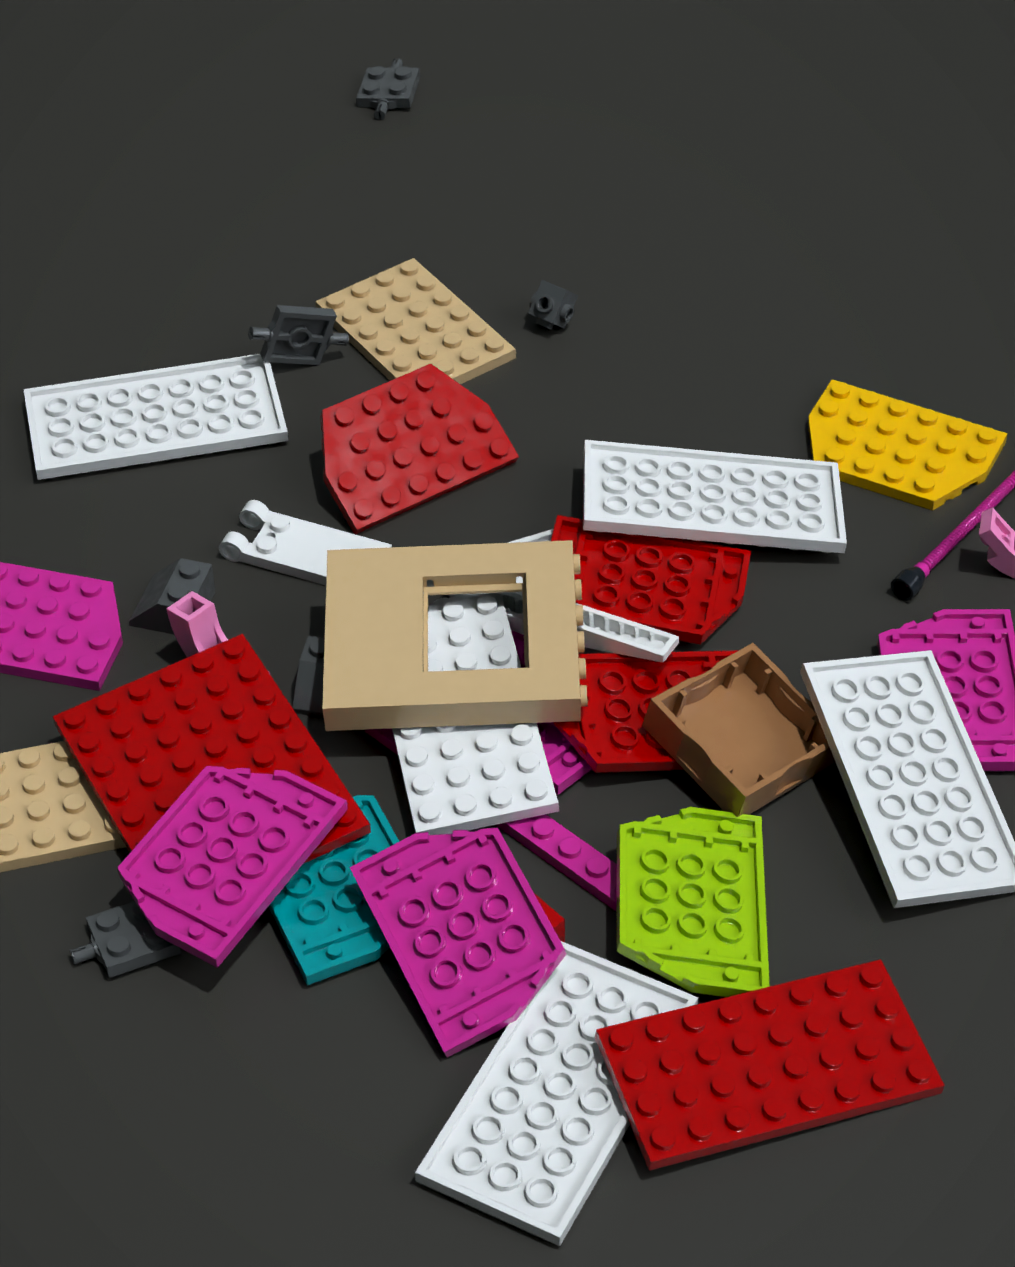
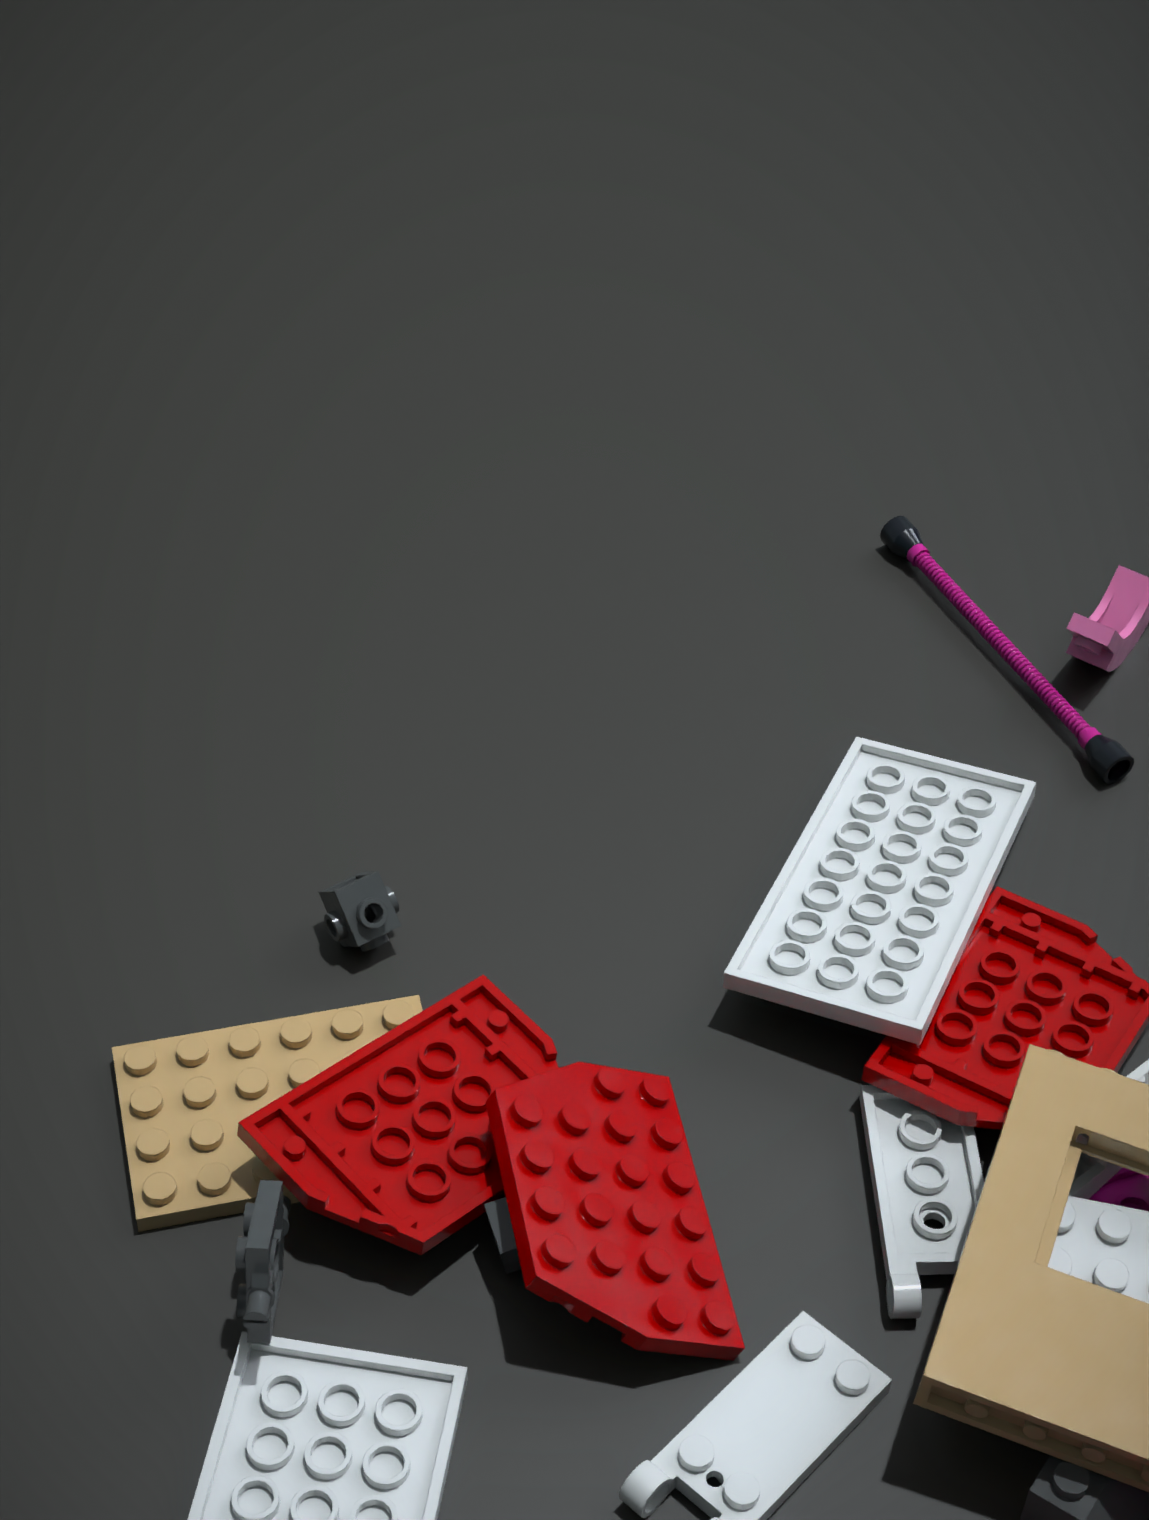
camera: 70 degrees left, 0 degrees up
(390, 341) = (403, 1124): none -> red plate
(900, 446) = (830, 672): yellow plate -> none

